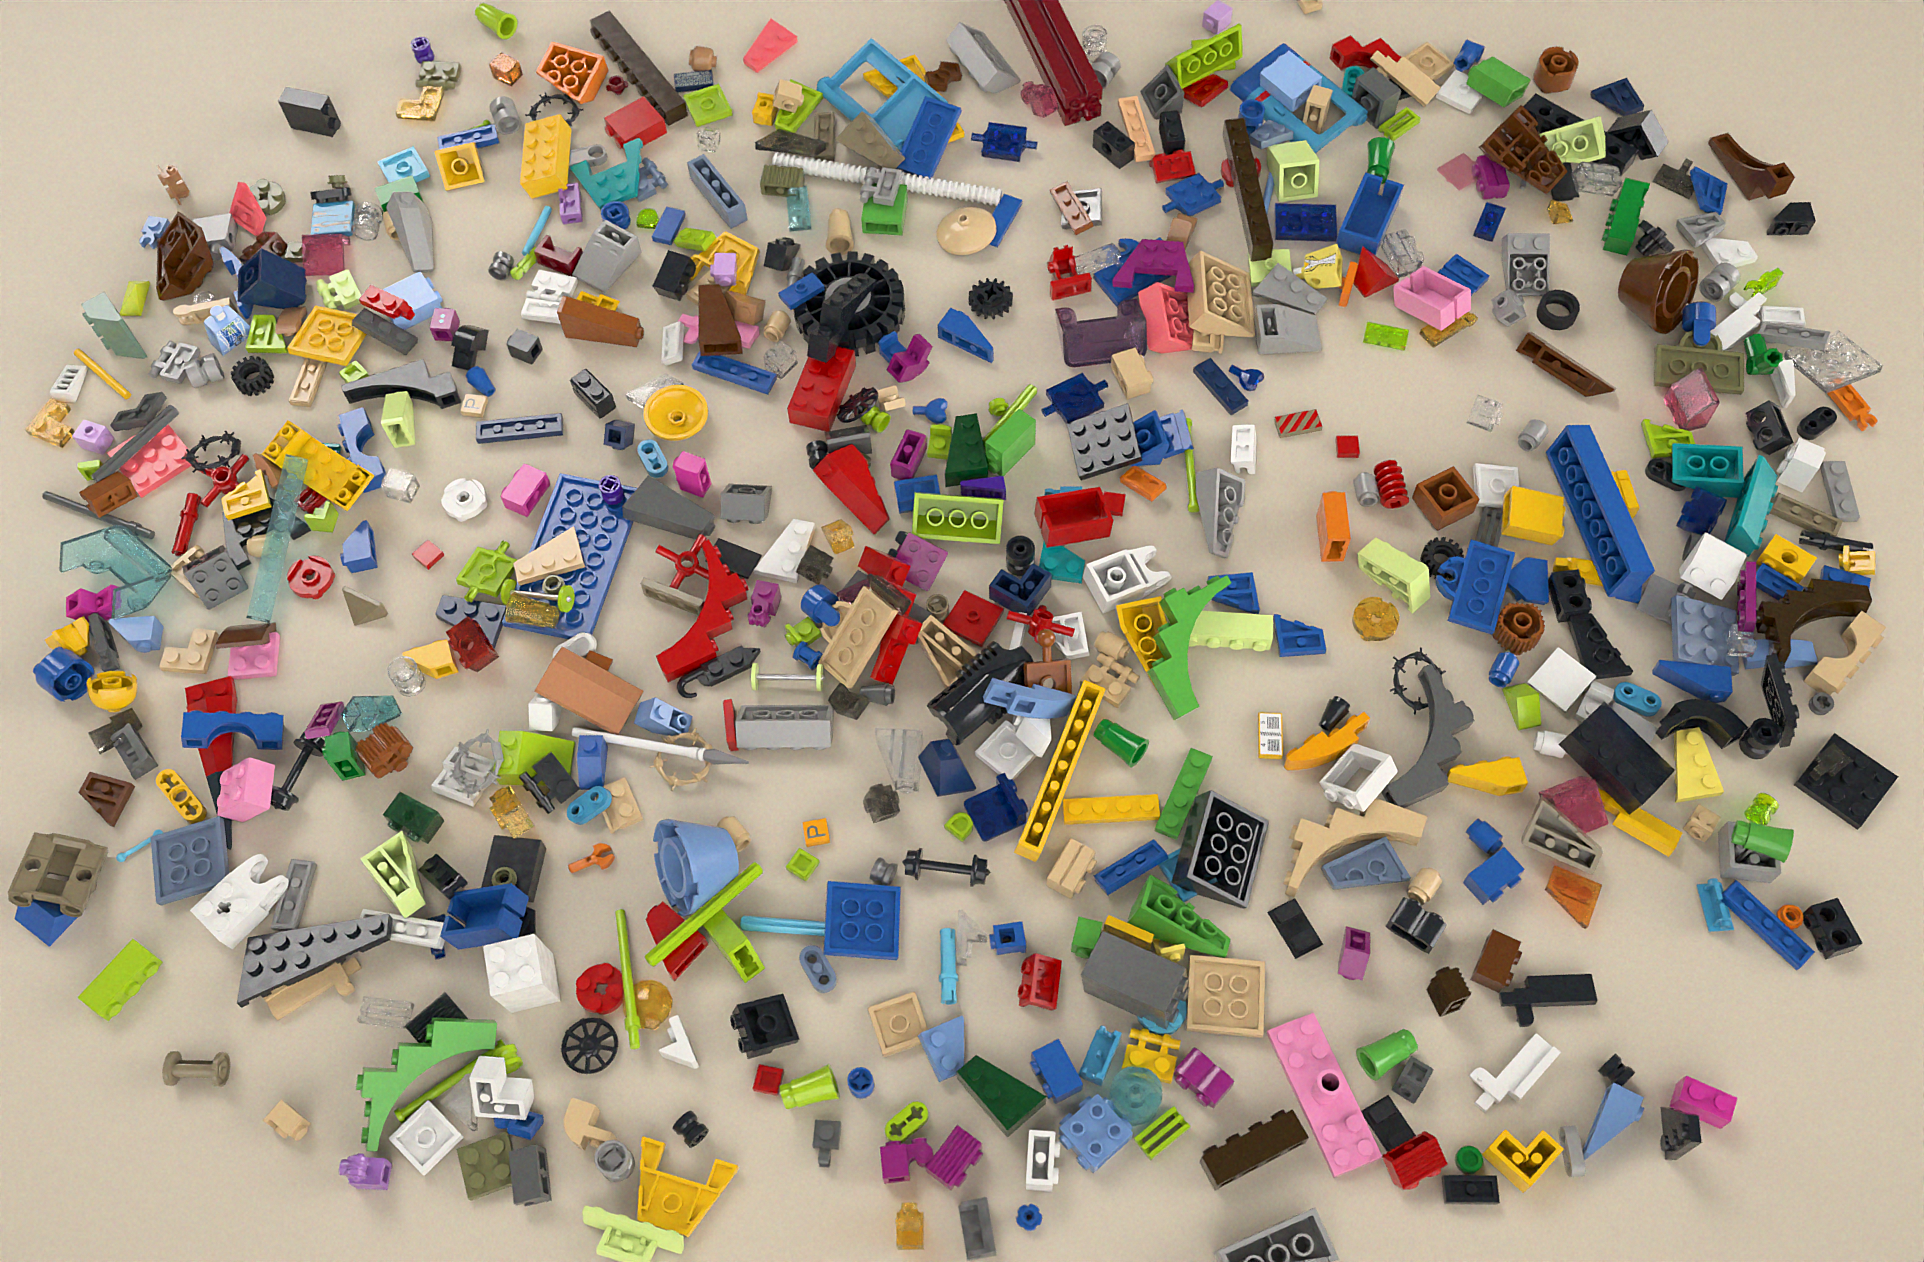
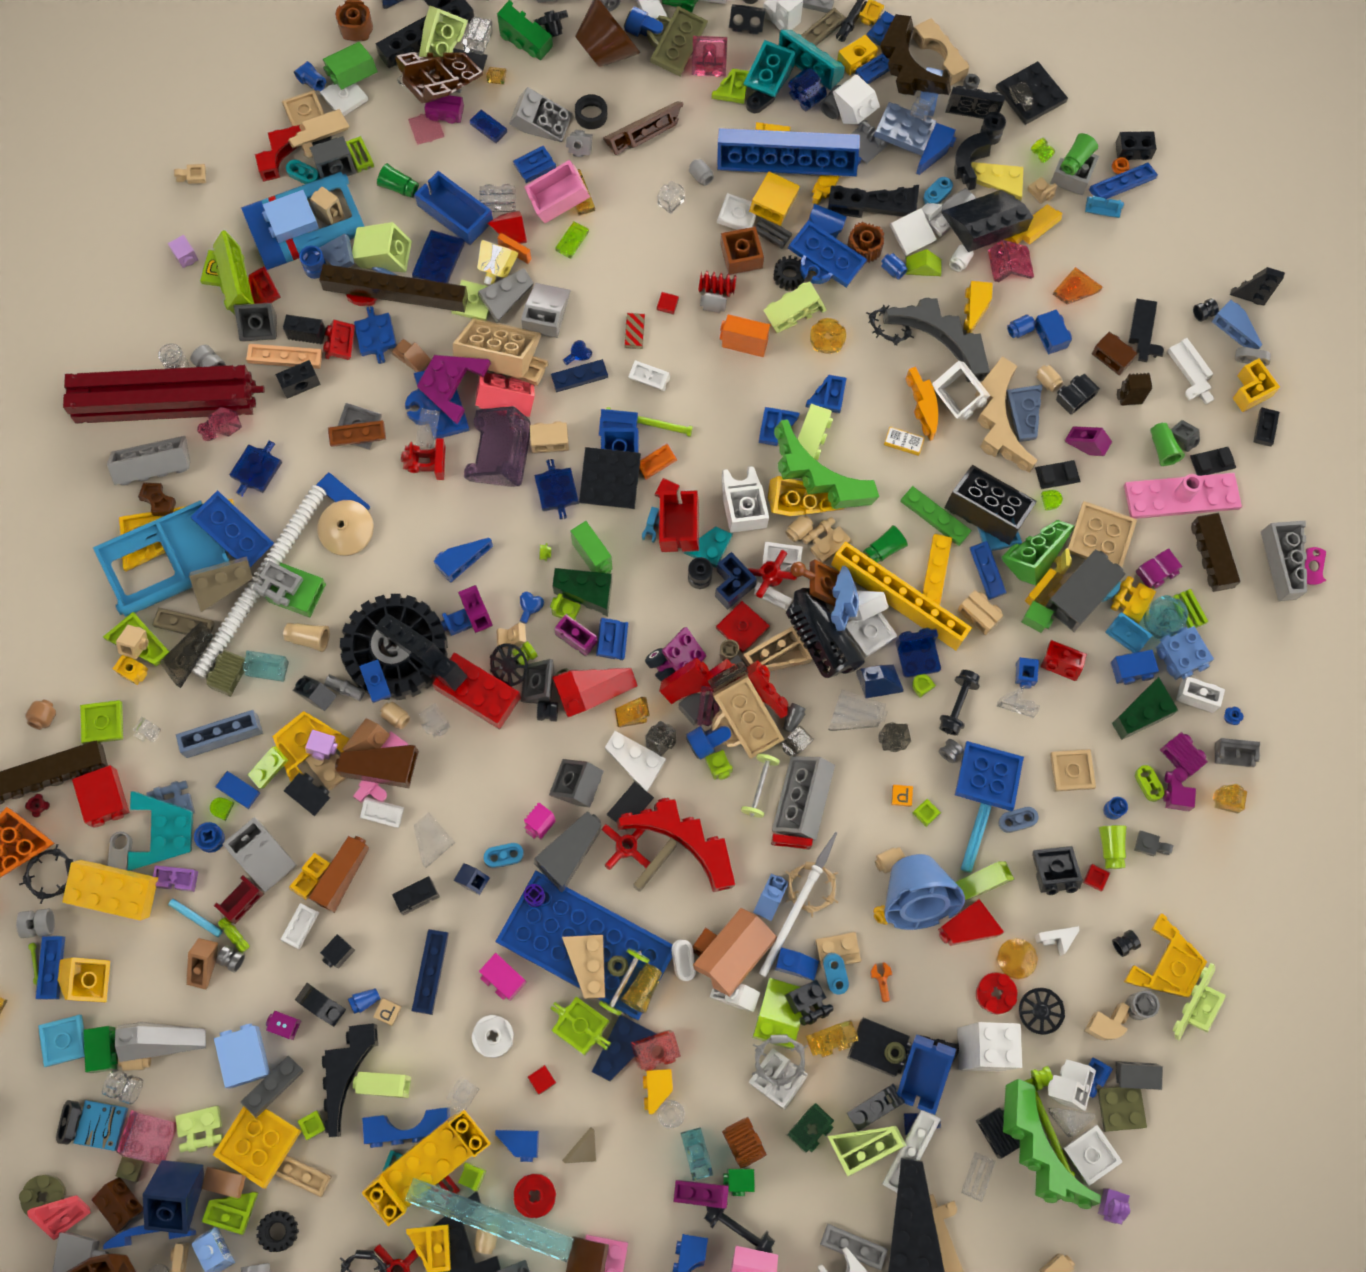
camera: 80 degrees left, 10 degrees up
(268, 468) = (414, 1216): nougat slope -> none
(337, 181) = (52, 1113): olive plate -> none
(386, 303) = (245, 1077): hinge -> none
(493, 241) = (201, 963): none -> medium nougat slope
(554, 284) = (269, 910): white plate -> none
(632, 1021) = (1035, 970): lime bar -> none
(674, 404) = (462, 810): yellow dish -> none
(693, 80) = (62, 729): dark blue tile -> none
(703, 914) = (970, 905): lime axle -> none
(719, 669) = (732, 833): black plate -> none
(735, 372) = (433, 763): blue plate -> none
(765, 602) = (682, 787): magenta brick -> none
(769, 45) = (45, 648): coral wing -> none
(807, 655) = (743, 765): blue bush -> none
(945, 1047) = (1099, 740): medium blue wing -> none
(948, 966) = (1037, 722): medium azure pin -> none
(957, 518) = (648, 612): lime slope -> none
(985, 487) = (627, 575): dark purple slope -> none
(990, 298) = (432, 534): black gear -> none
(1020, 403) = (555, 544): lime axle -> none
(1219, 500) = (689, 411): light grey wedge -> none
(1255, 925) = (1051, 499): none -> clear neon green tile
(1334, 712) = (899, 391): black cone -> none
(1415, 1161) = (1244, 452): red brick -> none
(1468, 1159) = (1244, 421): green tile -> none
(1560, 838) = (1038, 279): dark tan wedge -> none
(1703, 1100) = (1236, 267): dark pink brick -> none
(1747, 598) = (890, 91): magenta plate -> none

